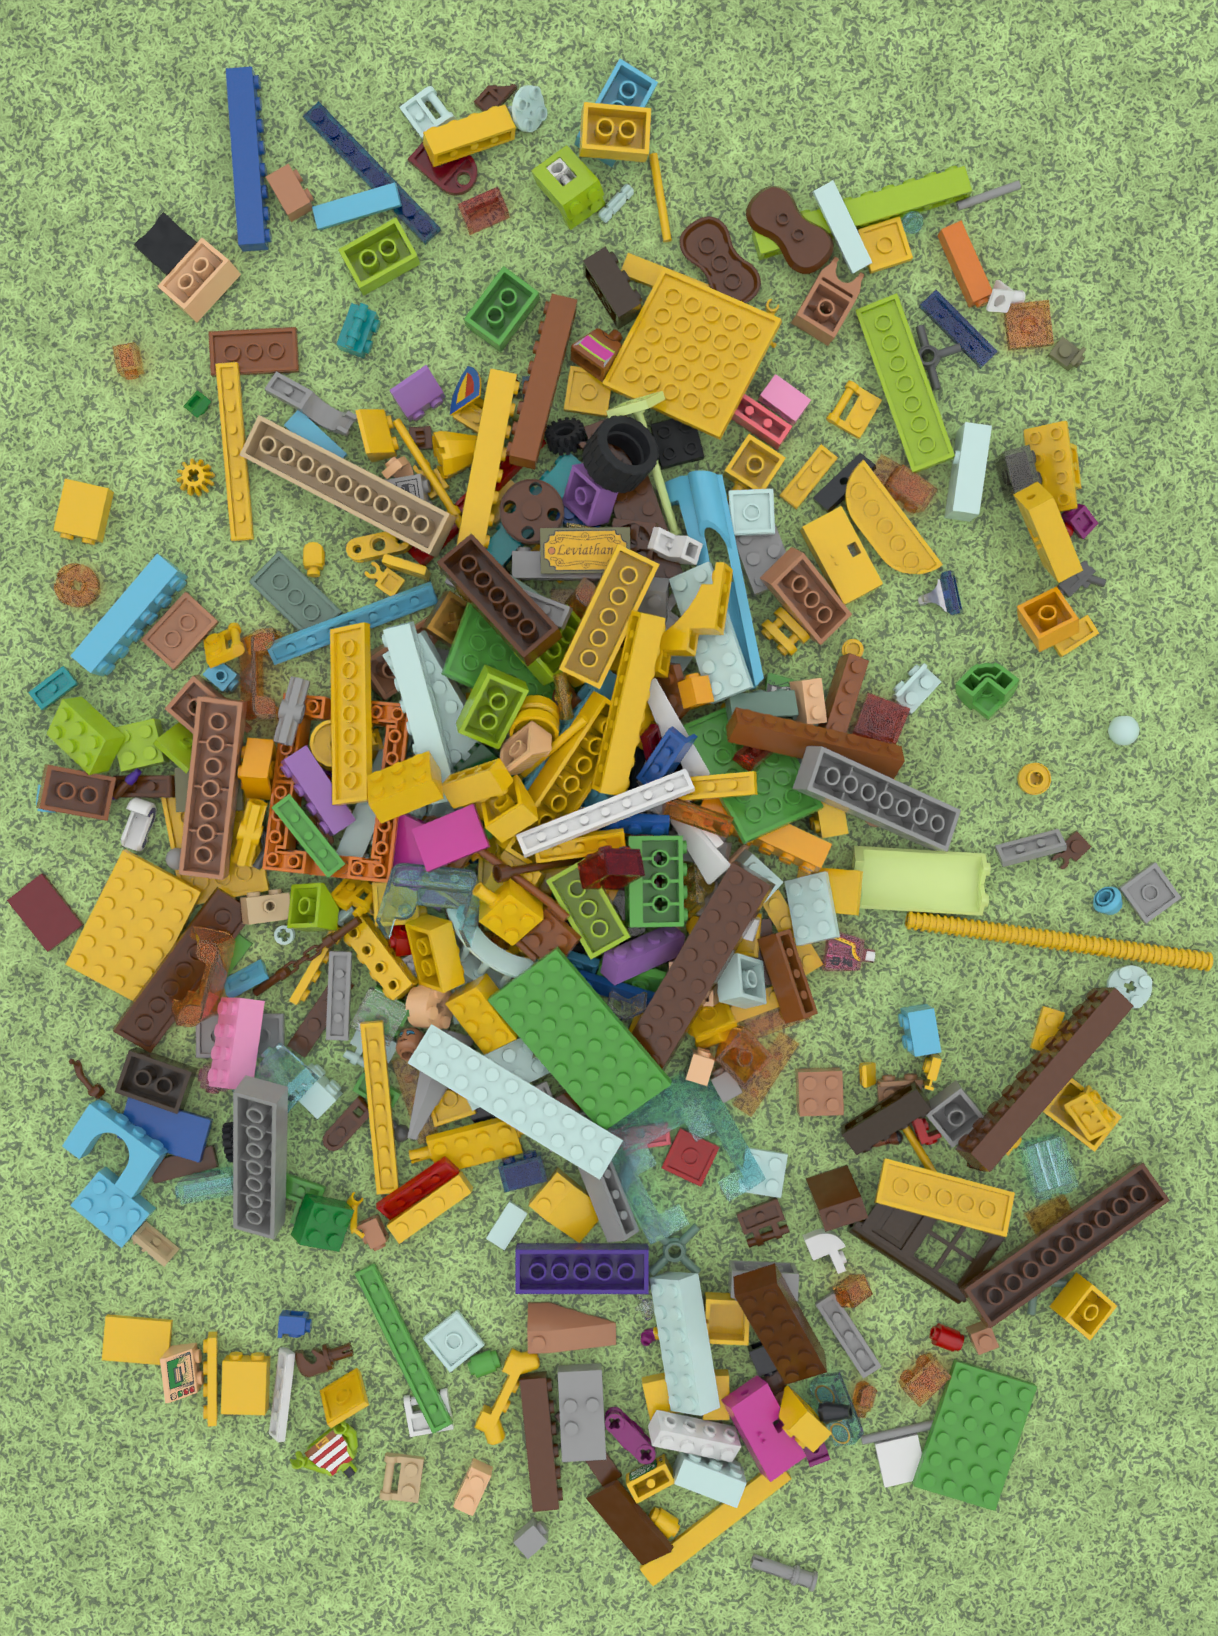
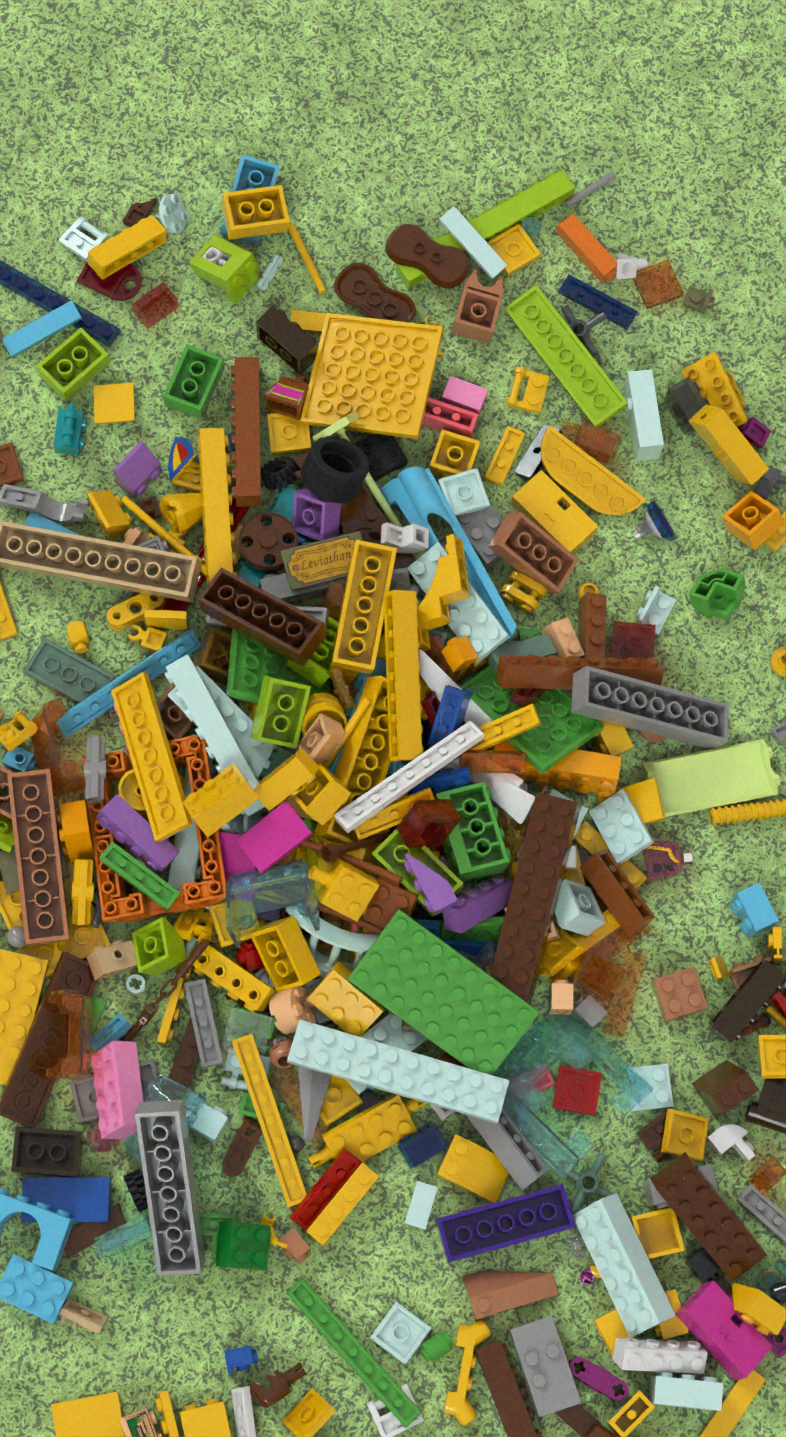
camera: 20 degrees left, 15 degrees down
(412, 311) = (114, 403): none -> yellow piece
(598, 937) = (435, 888): none -> medium lavender slope
(783, 1231) = (685, 1134): none -> yellow tile

